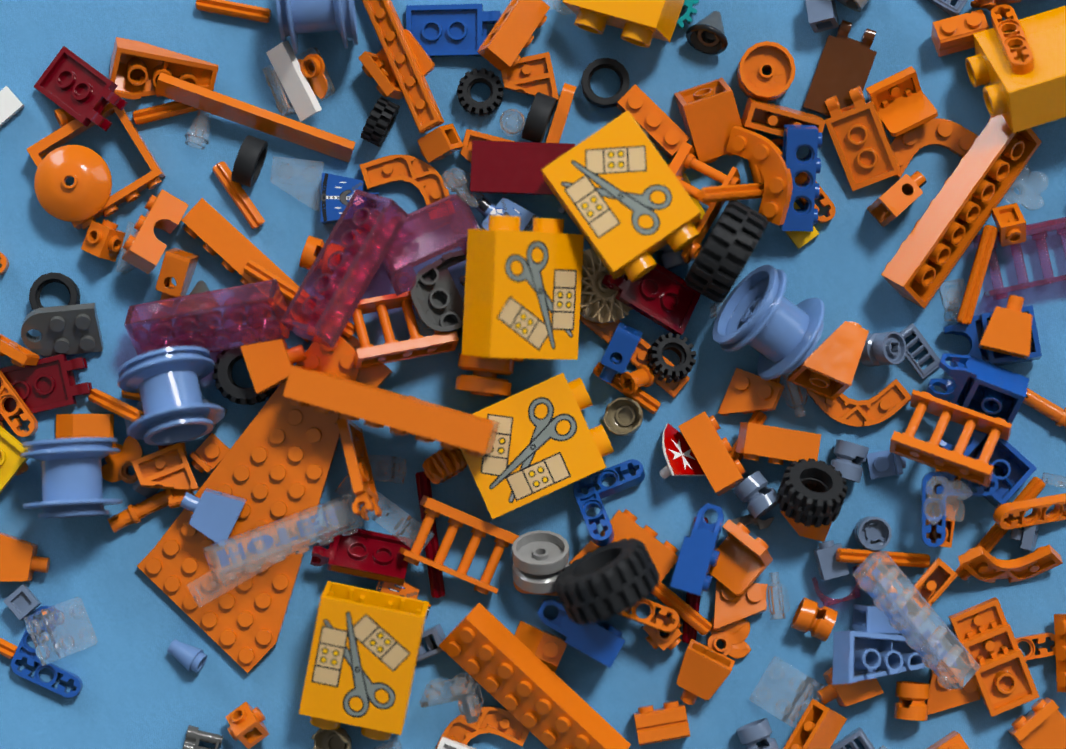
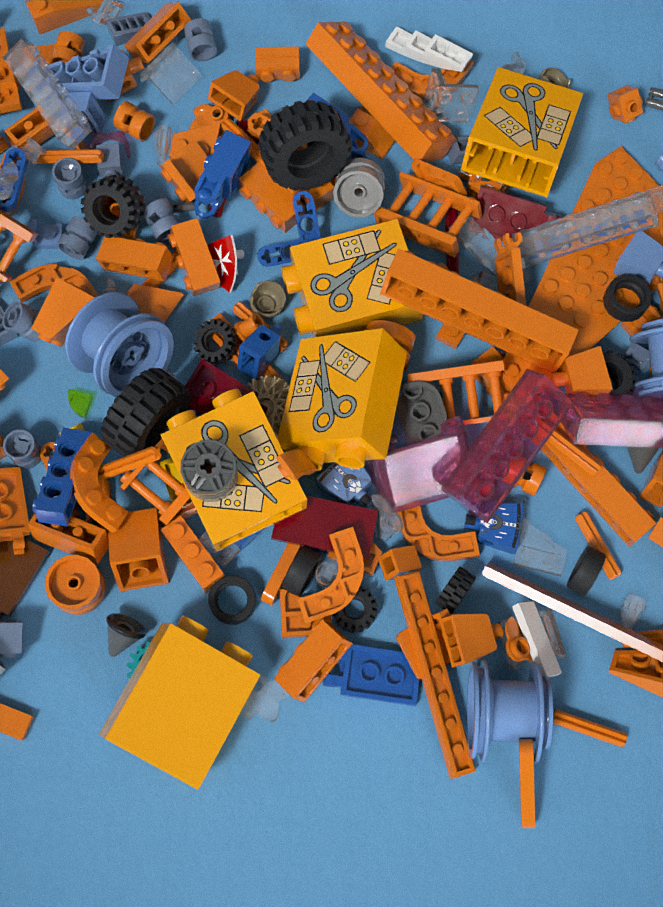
camera: 170 degrees left, 15 degrees down
(213, 477) = (632, 283): none -> black tyre
(361, 68) = (469, 637): none -> orange torso
(452, 584) = (438, 176): none -> orange wing
(492, 108) = (346, 583): none -> orange plate
(557, 201) = (295, 464): none -> orange slope
(634, 186) = (224, 473): none -> dark grey wheel
(806, 273) = (79, 402): none -> clear neon green tile
(852, 207) = (22, 449): none -> sand blue wheel
(920, 555) = (33, 150): none -> clear wheel

